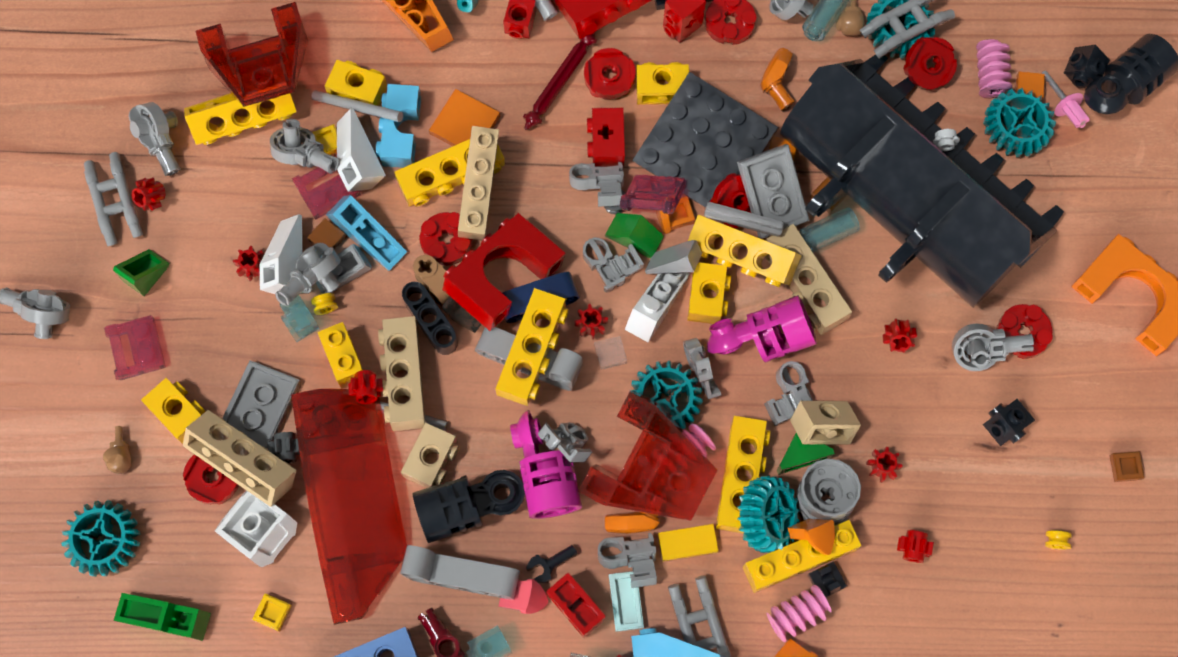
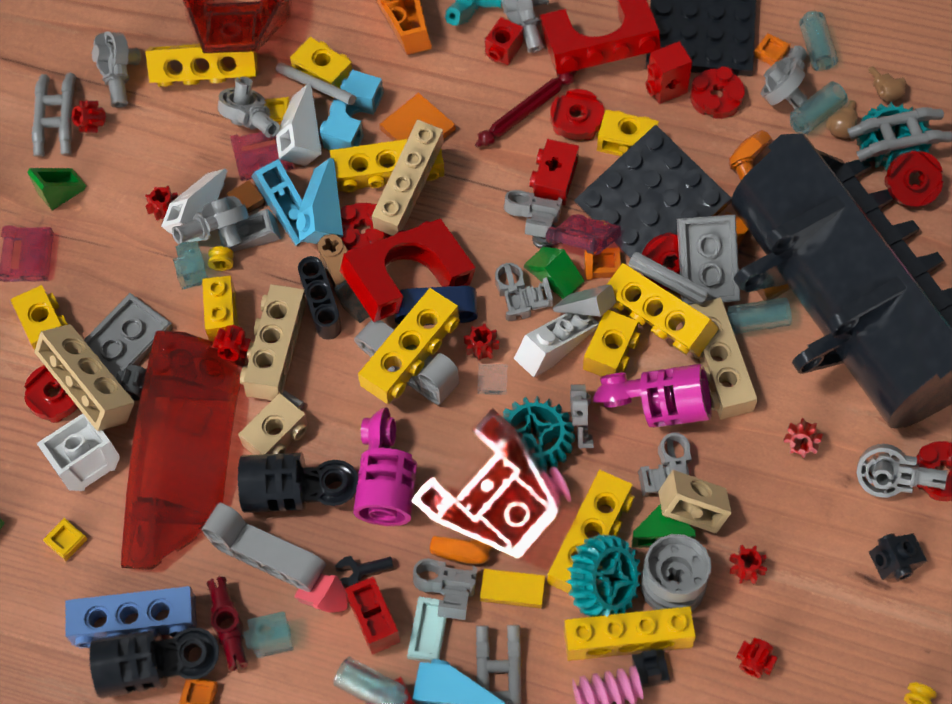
camera: 20 degrees right, 10 degrees down
(402, 229) = (320, 206): none -> medium azure slope
(568, 439) = (418, 447): light grey piece -> none
(818, 532) = (650, 610): orange tile -> none
(946, 139) = (909, 254): white plate -> none

